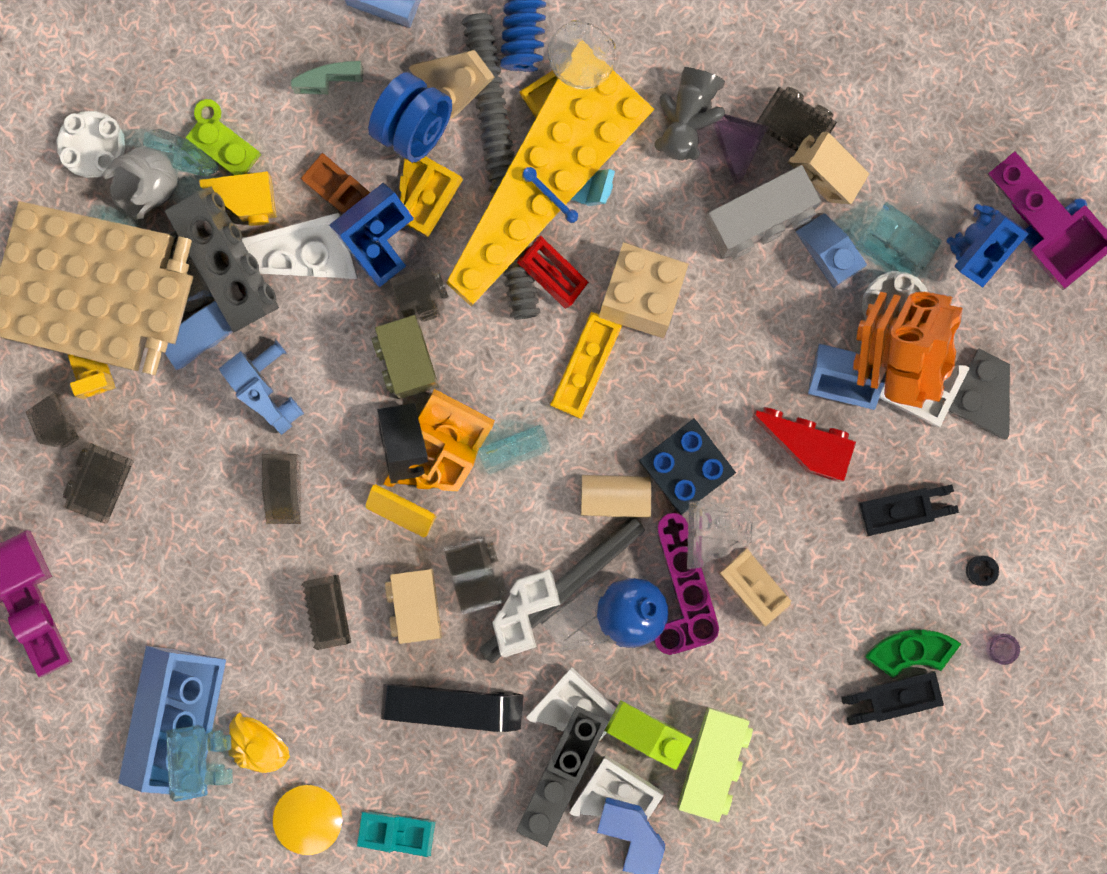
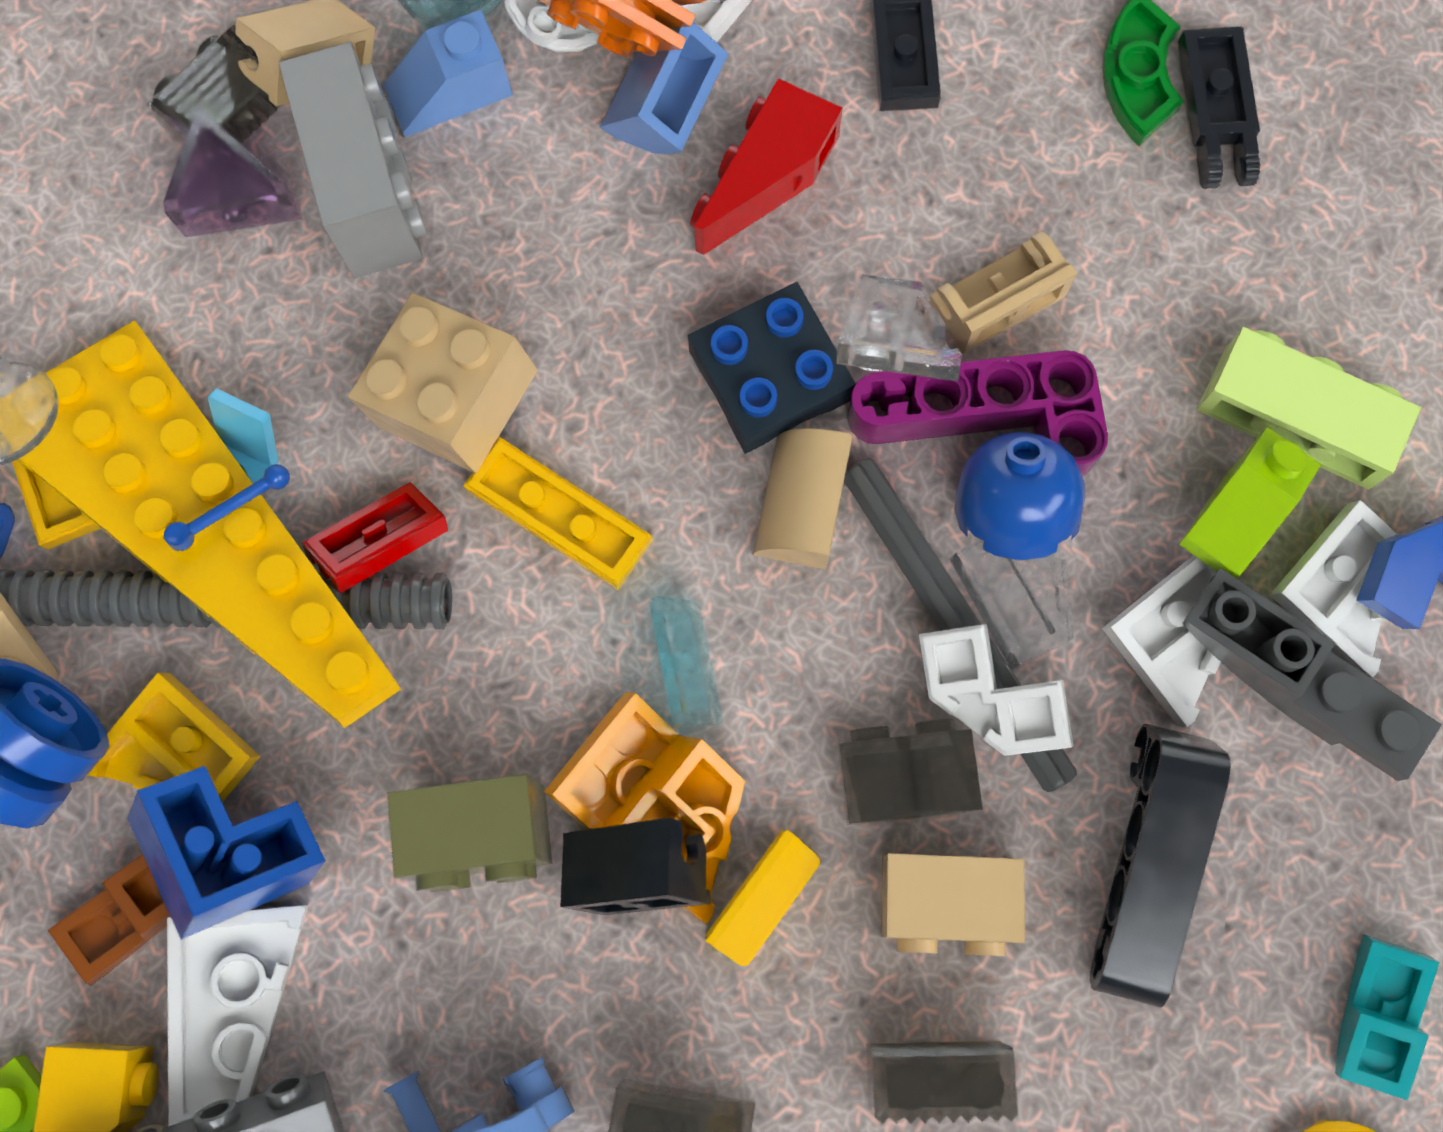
camera: 75 degrees left, 10 degrees down
(420, 293) = (348, 781): clear smoke brick -> none
(689, 113) = (117, 238): dark grey piece -> none

